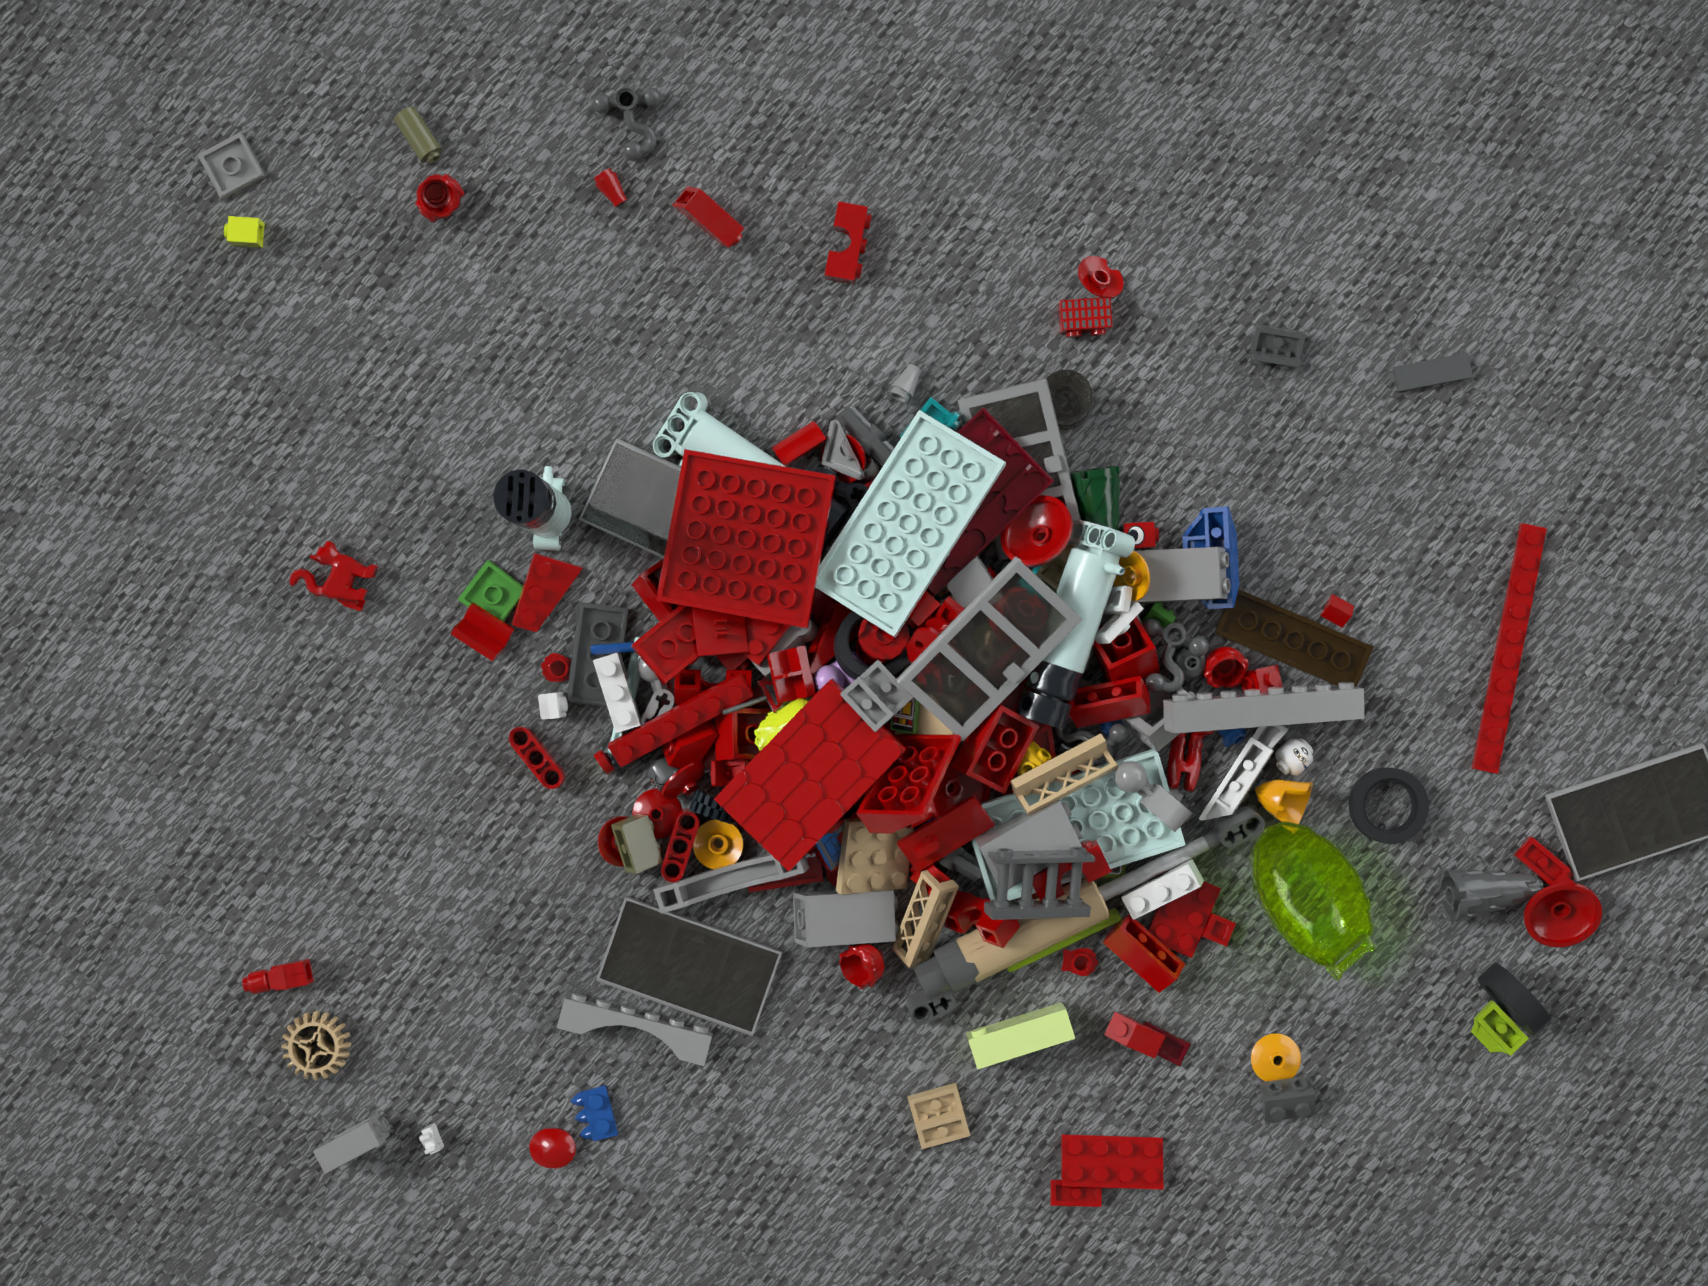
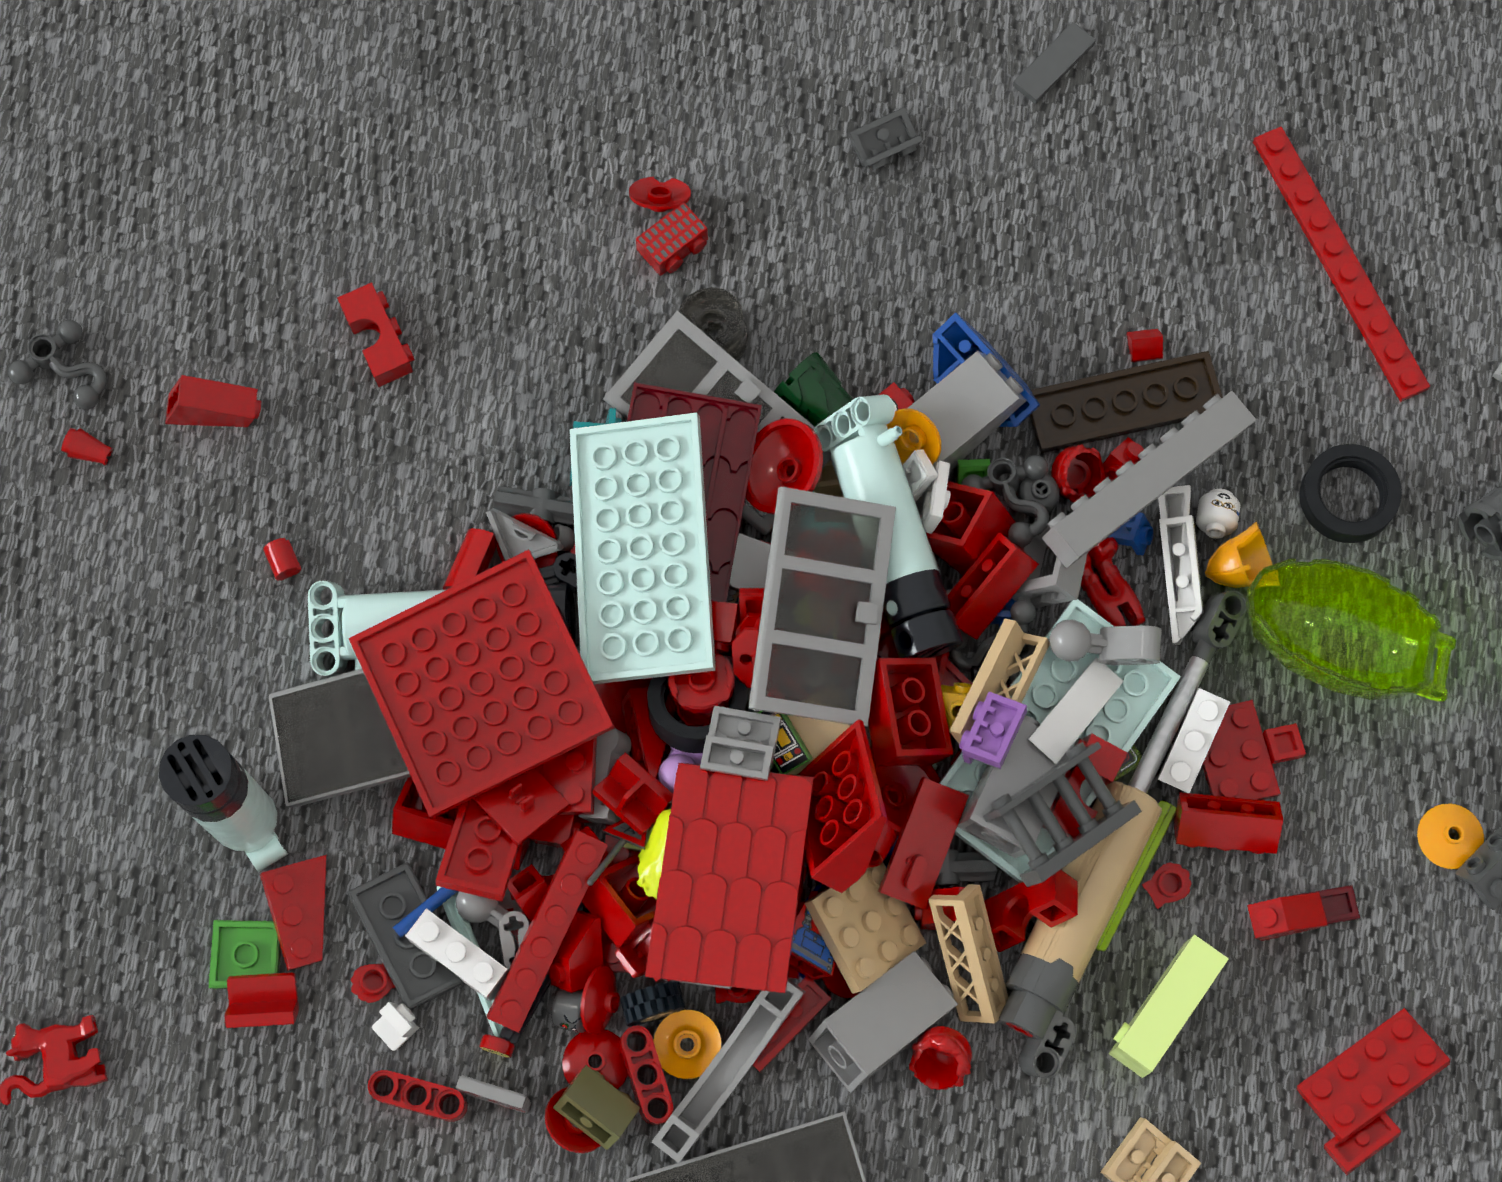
camera: 35 degrees left, 15 degrees down
(581, 792) = (493, 1094): none -> light grey tile
(684, 354) = (281, 559): none -> red piece
(905, 384) = (538, 430): light grey cone -> none
(1037, 802) = (993, 730): none -> medium lavender bracket
(1100, 822) = (1075, 710): none -> white sticker

